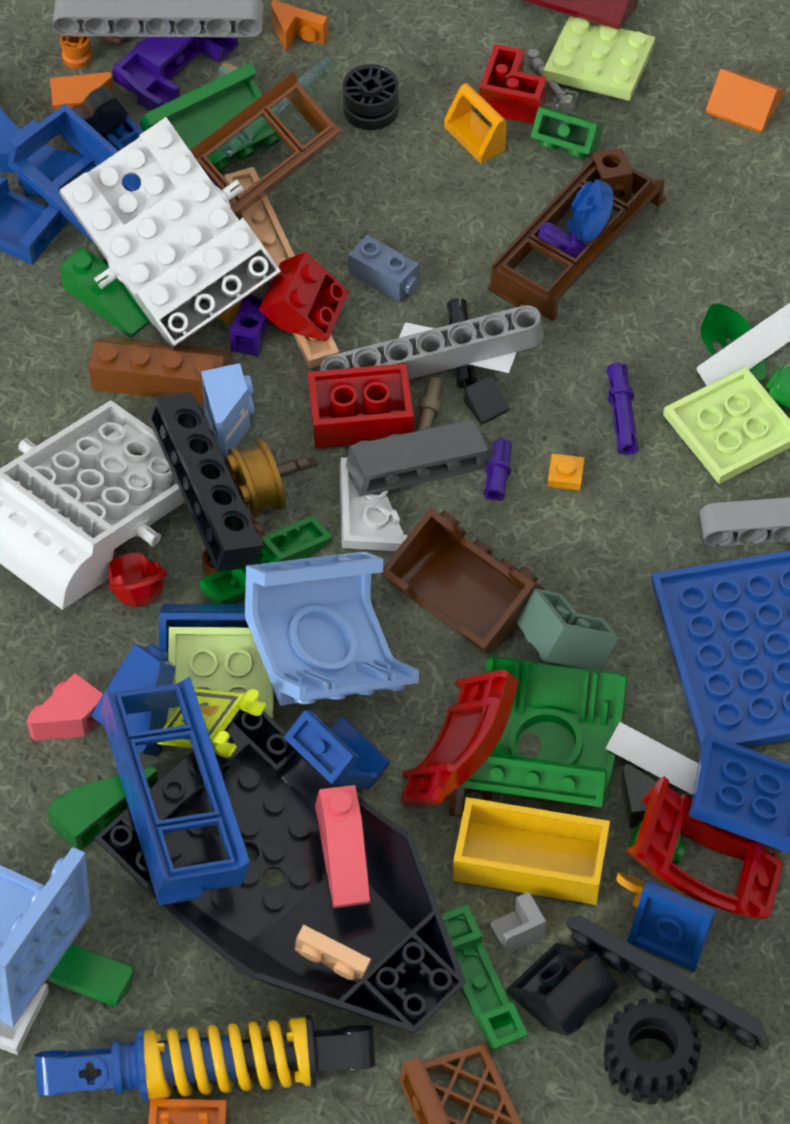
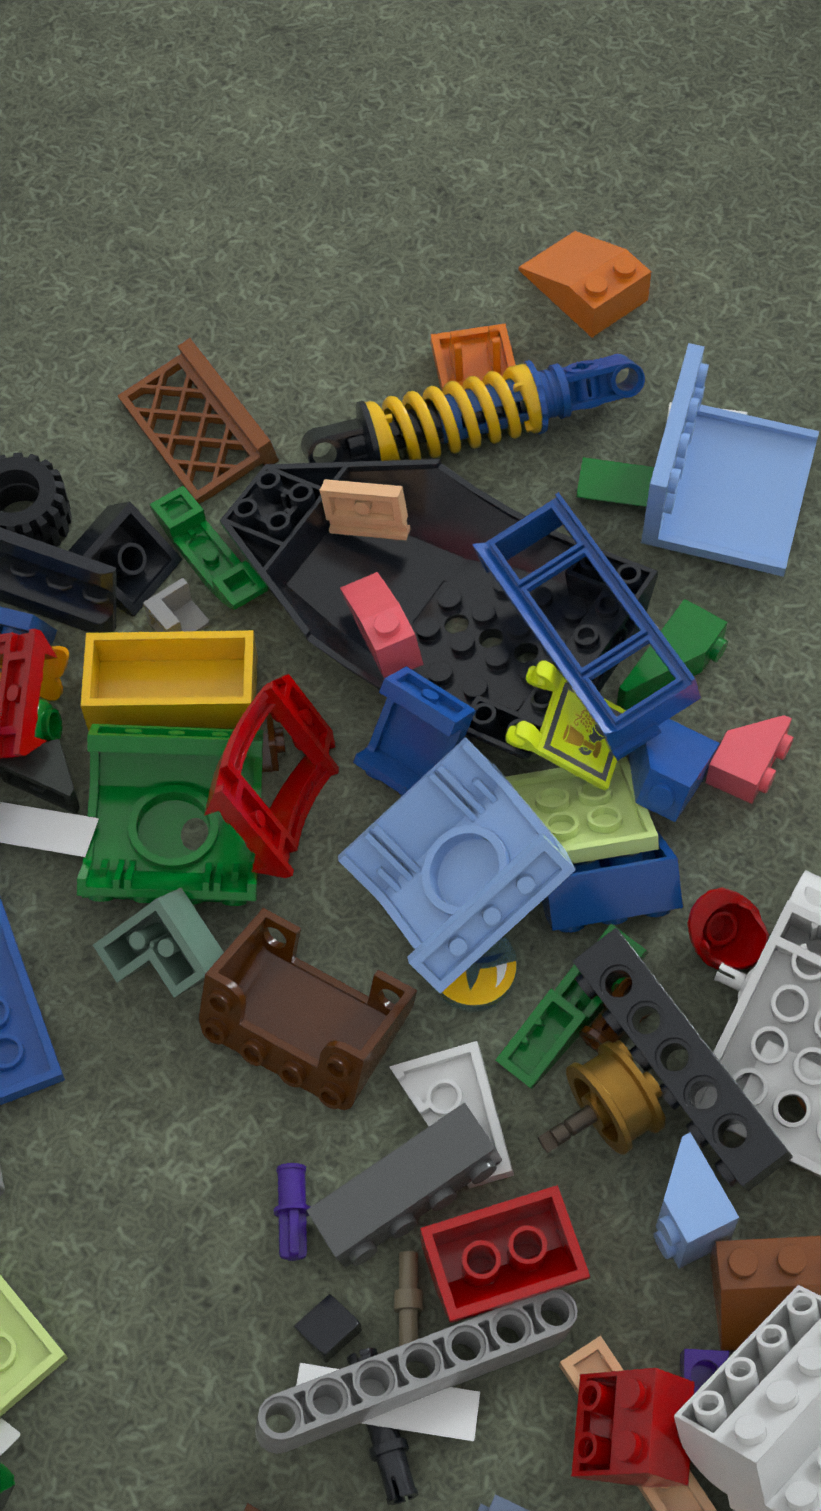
camera: 170 degrees right, 5 degrees up
(565, 472) = (197, 1229): light orange plate -> none
(621, 398) = (131, 1369): dark purple pin -> none

